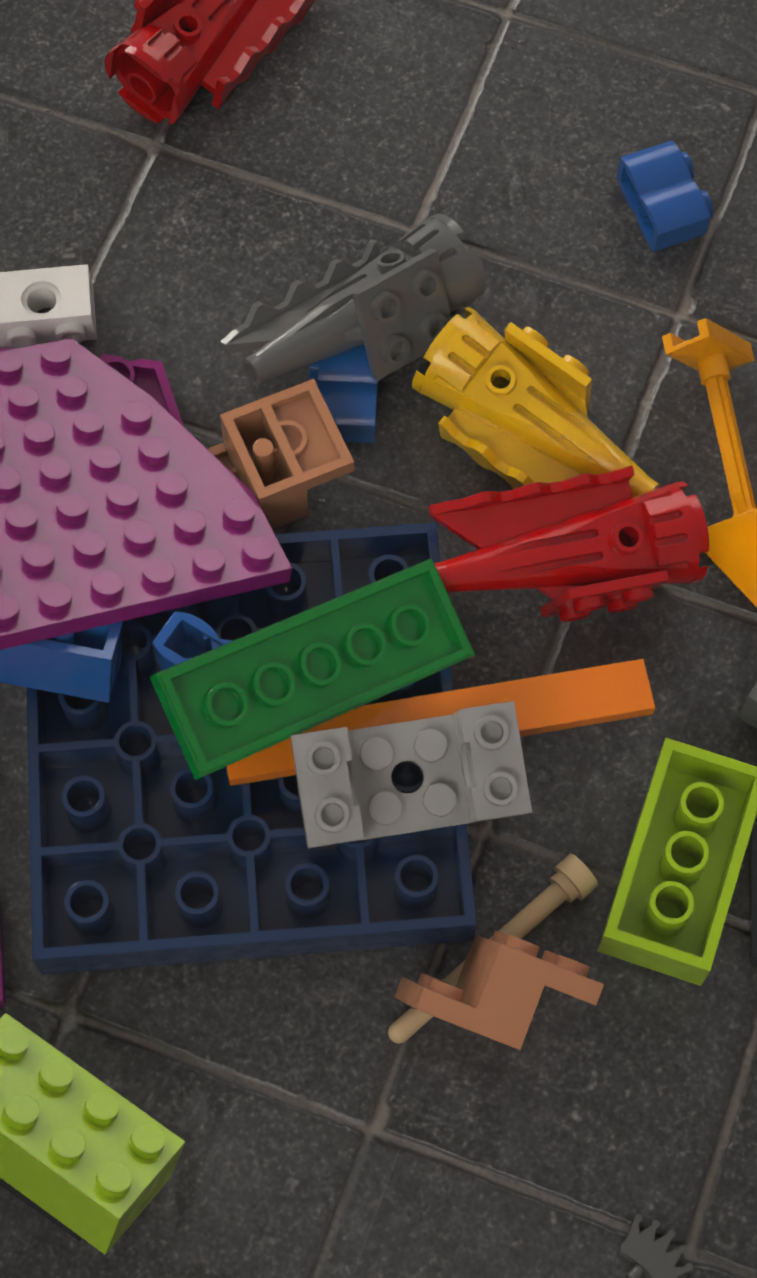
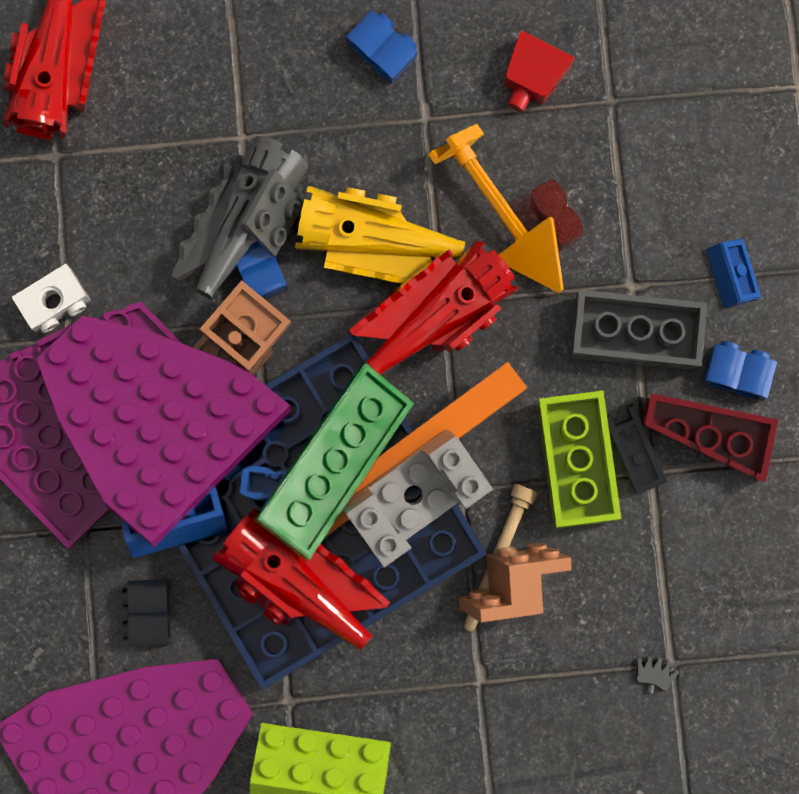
camera: 25 degrees left, 15 degrees up
(162, 819) = (296, 587): none -> red piece

